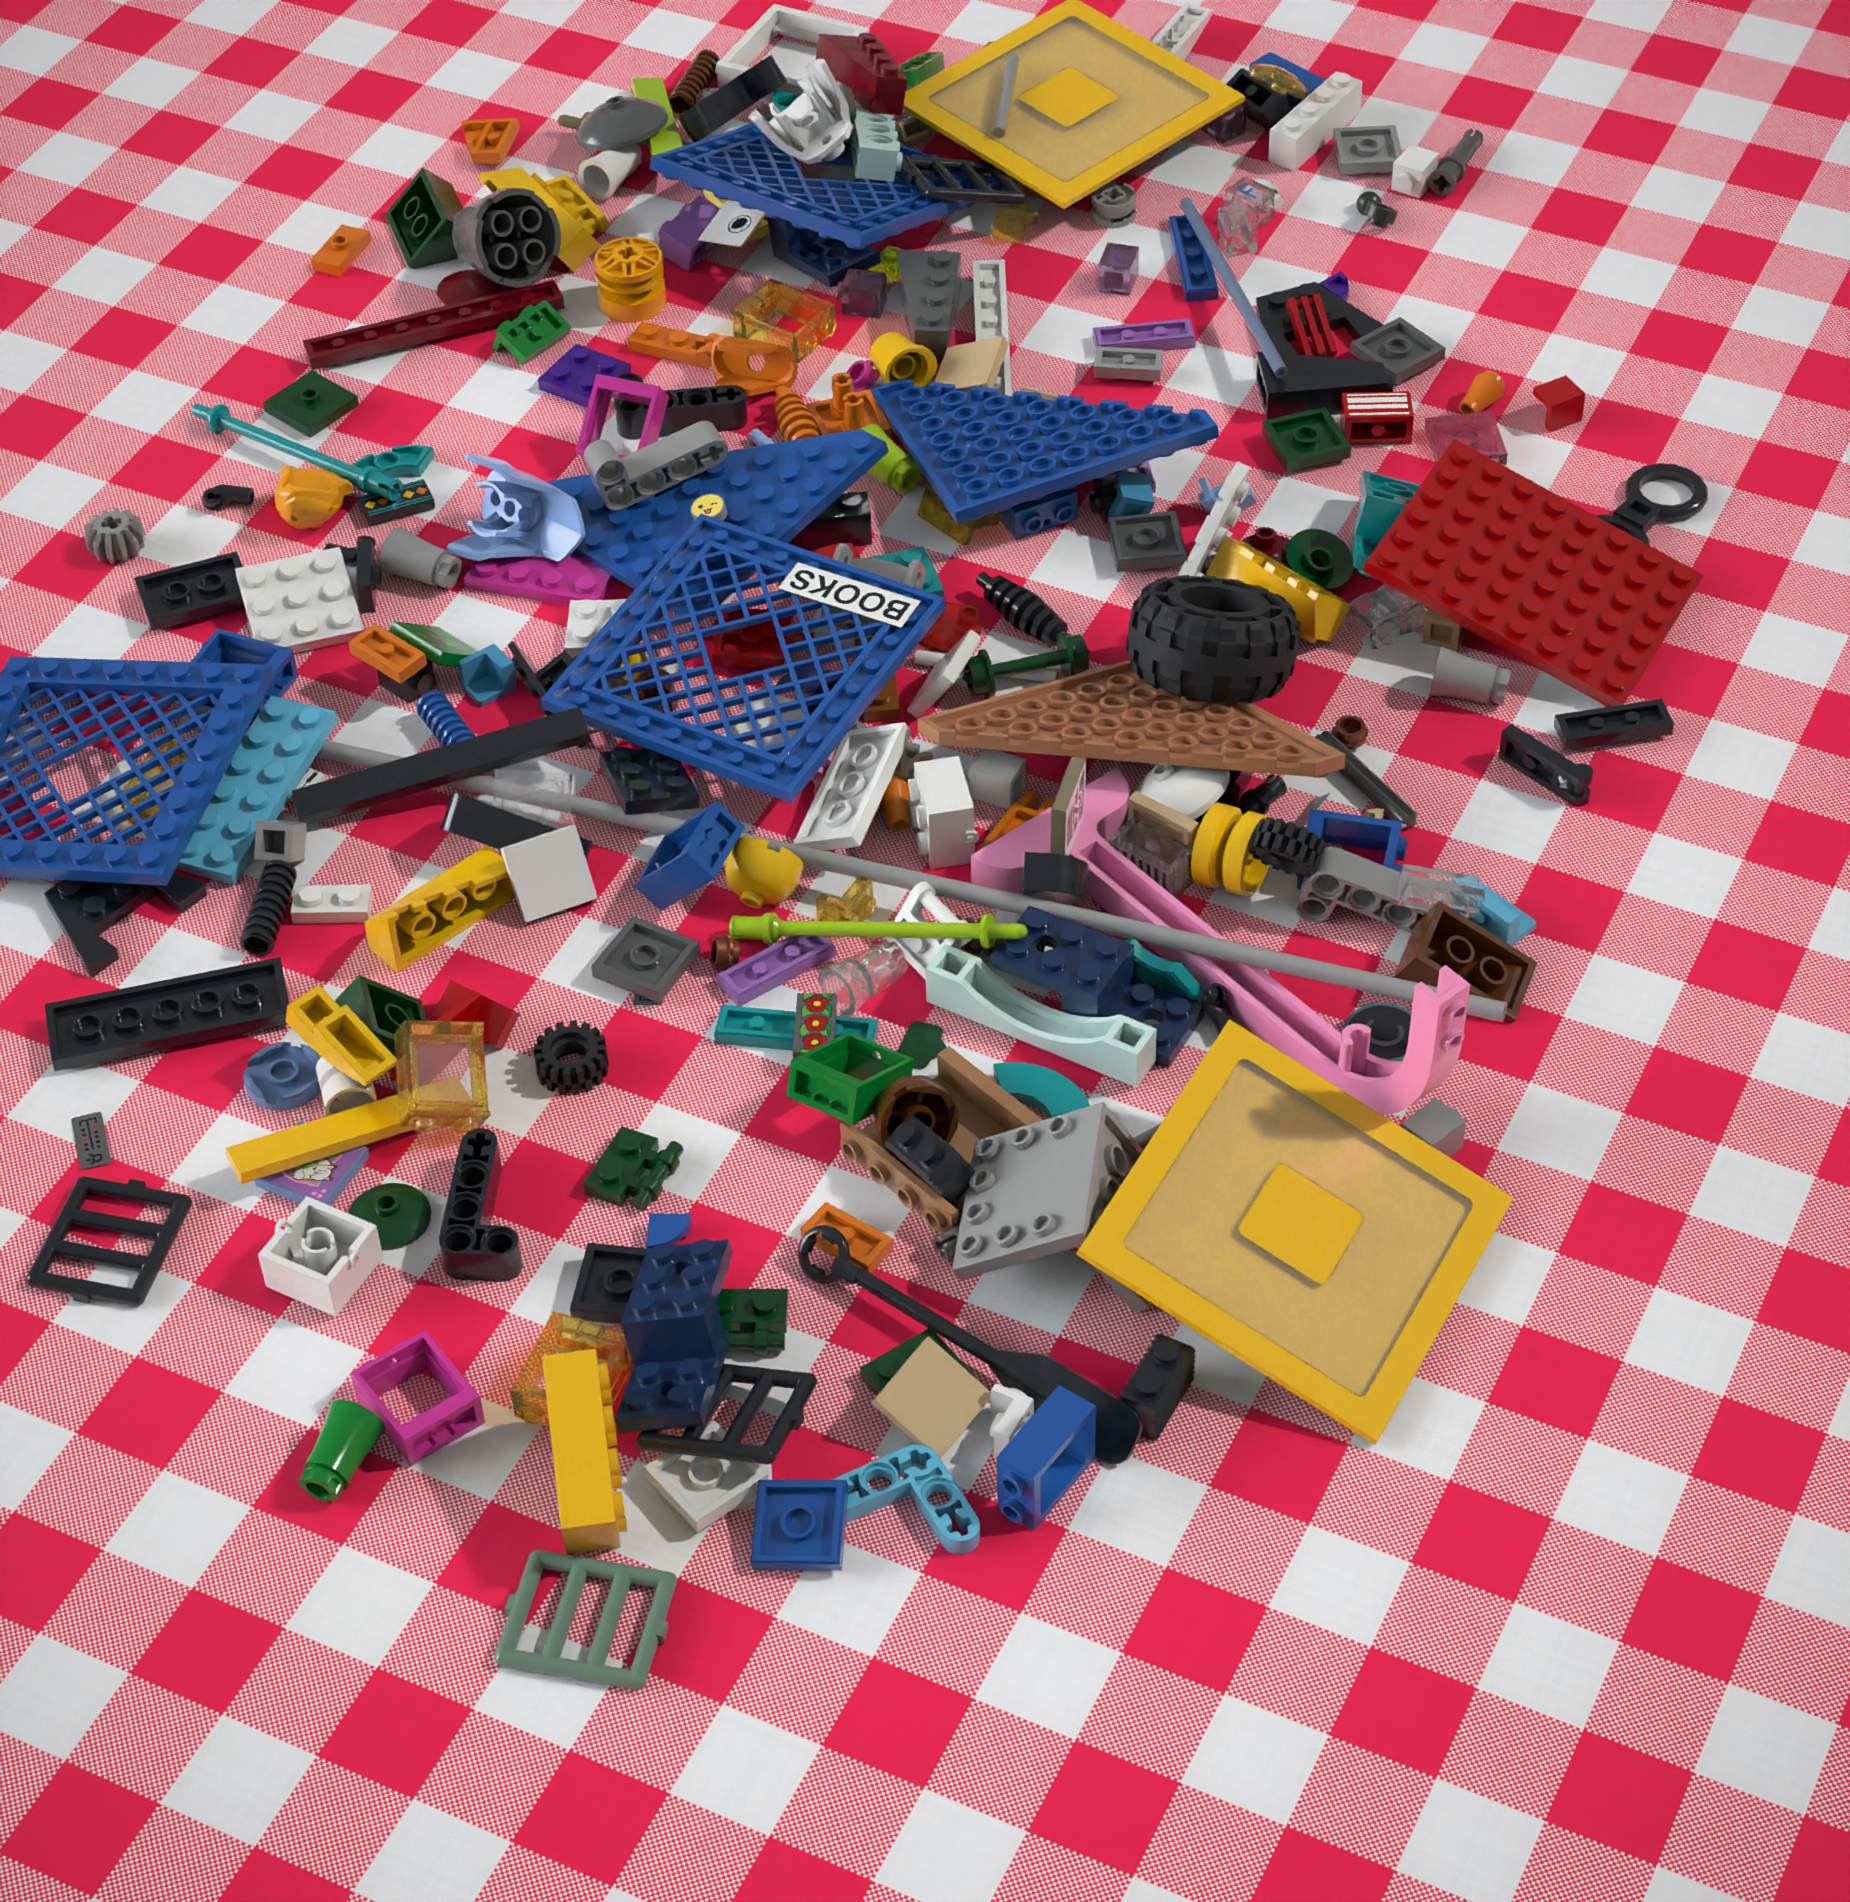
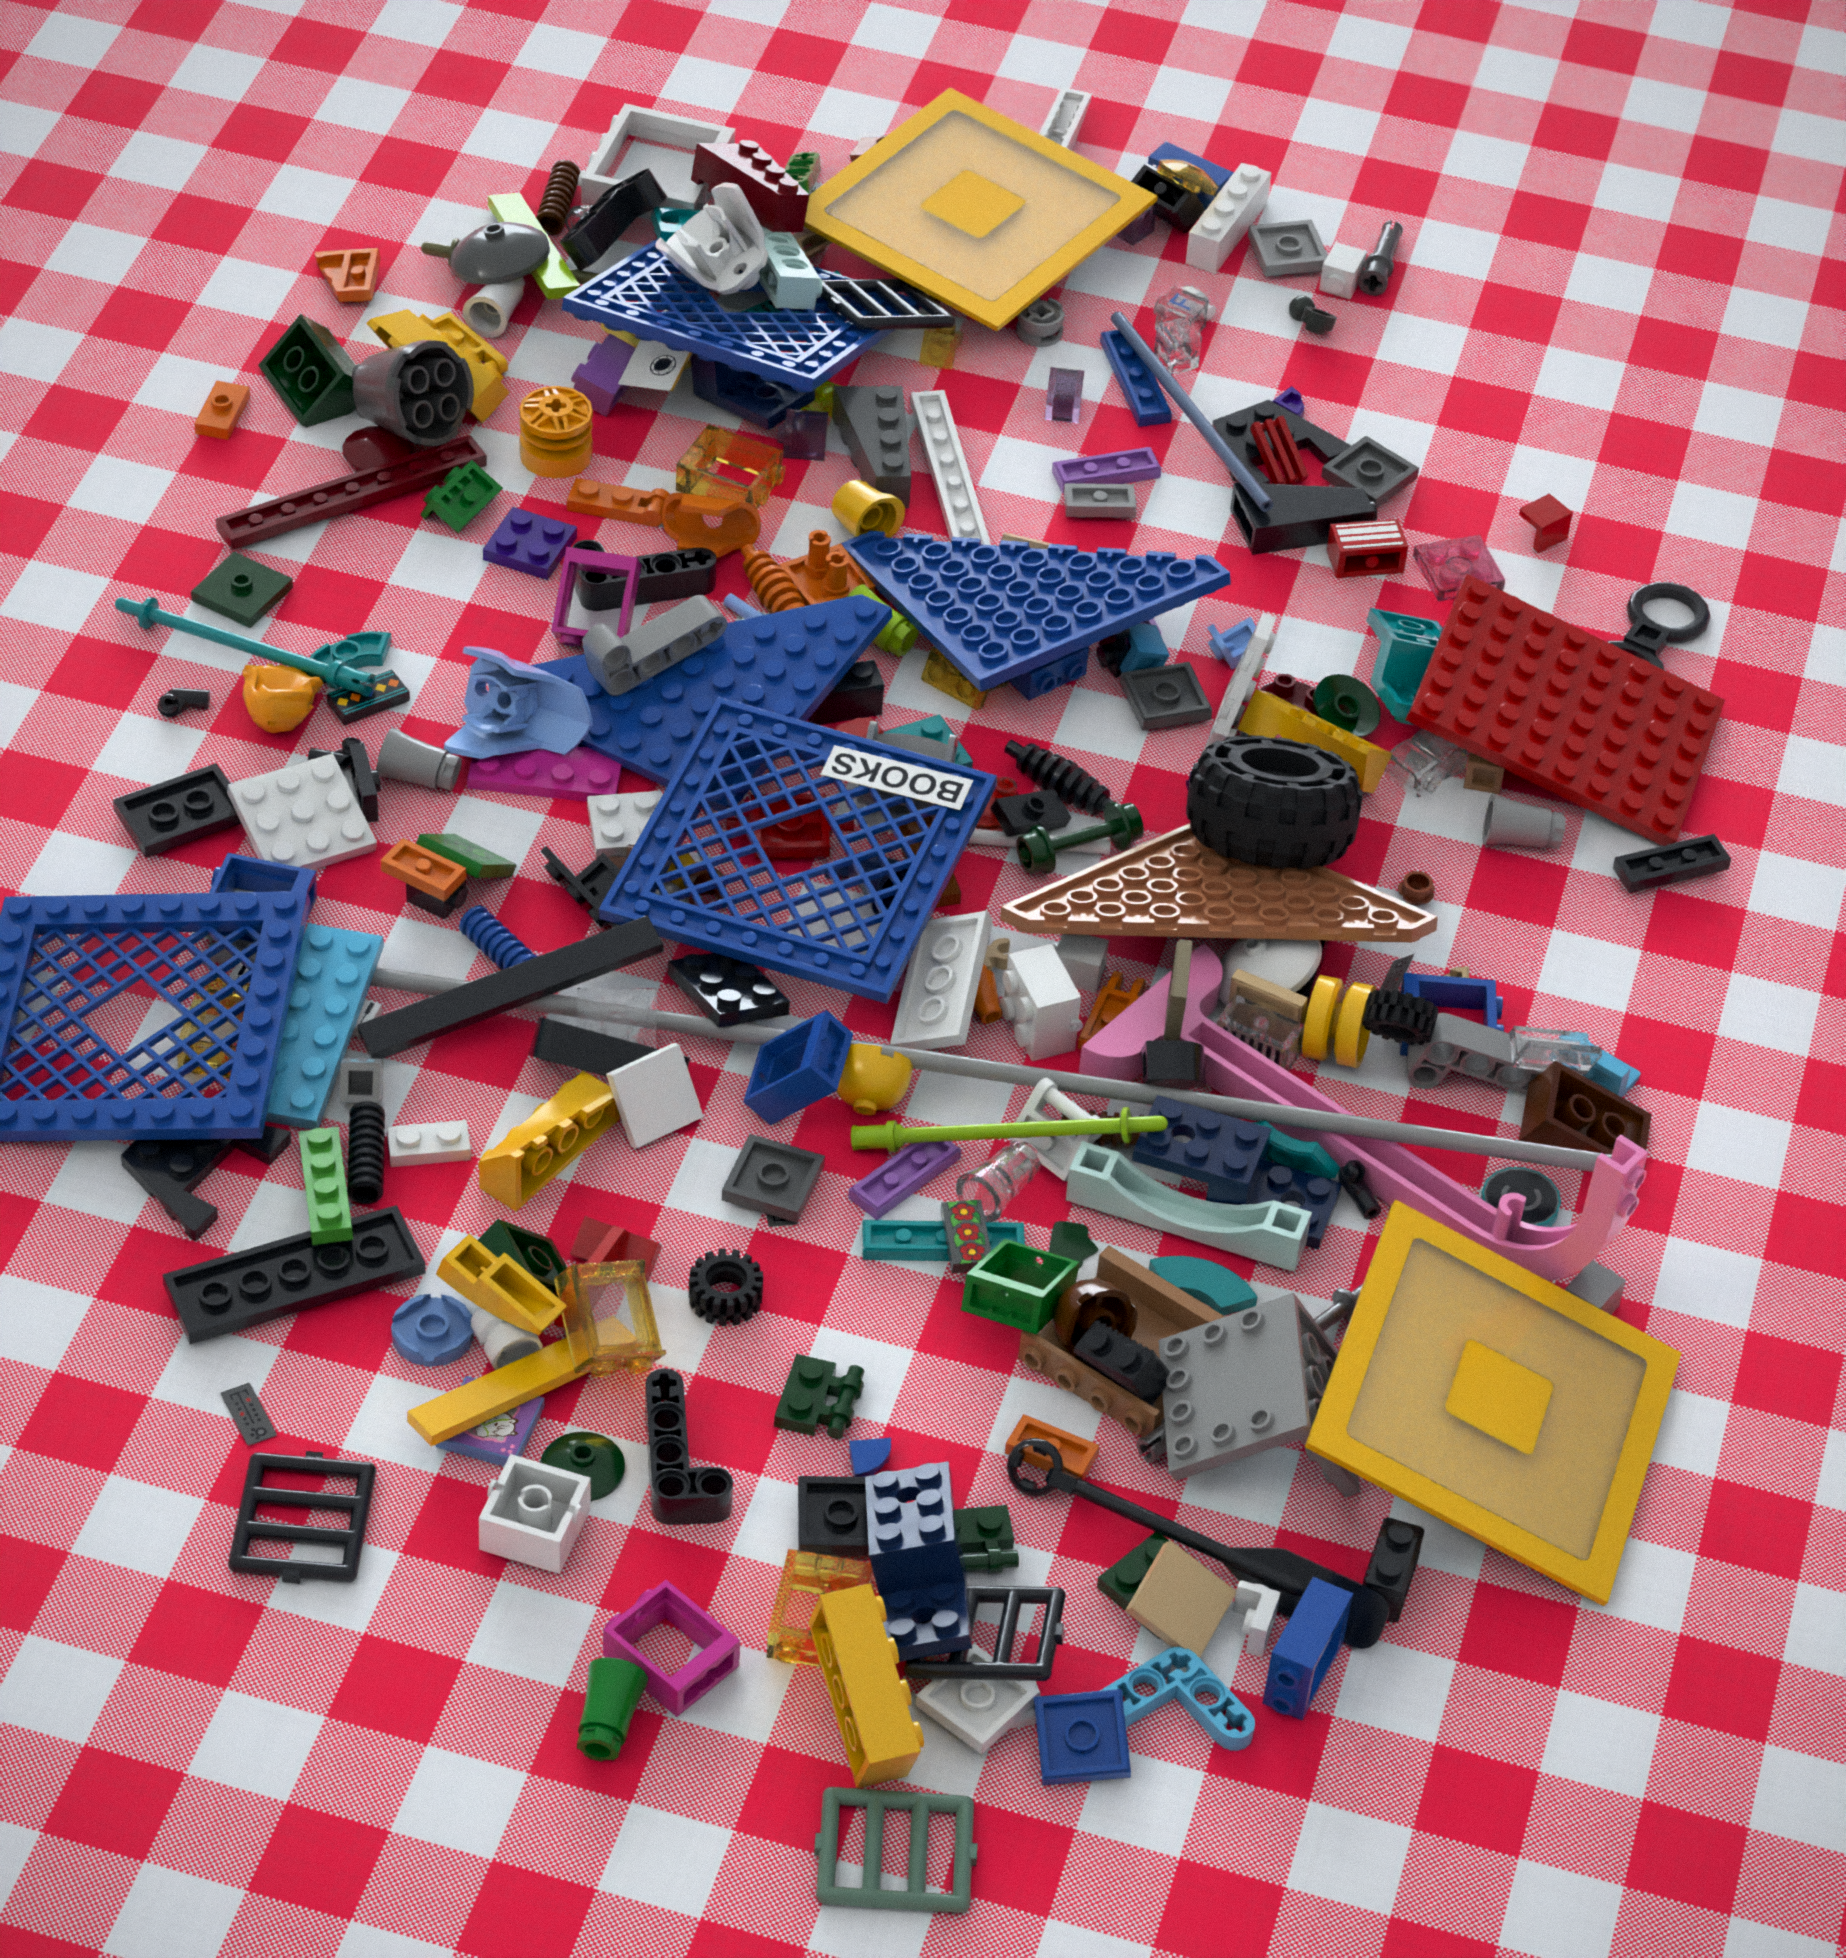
camera: 15 degrees left, 0 degrees up
(114, 535) = (75, 753): light grey gear -> none
(219, 934) = (325, 1185): none -> bright green plate
(487, 675) = (524, 884): dark azure panel -> none
(710, 505) = (720, 686): light yellow tile -> none
(724, 952) = (850, 1164): copper plate -> none
(854, 906) = (972, 1107): clear yellow bracket -> none
(863, 375) = (828, 522): dark pink plate -> none
(944, 673) = (1002, 854): white tile -> none
(973, 363) = (943, 511): tan tile -> none
(998, 637) = (1021, 812): none -> black plate
(1005, 95) = (908, 205): light grey bar -> none
(1262, 796) = (1346, 963): black pin -> none
(1306, 439) = (1300, 575): dark green plate -> none
(1372, 785) = (1457, 947): dark grey axle -> none
(1483, 392) = (1466, 514): orange cone -> none
(1545, 766) = (1617, 911): black plate -> none

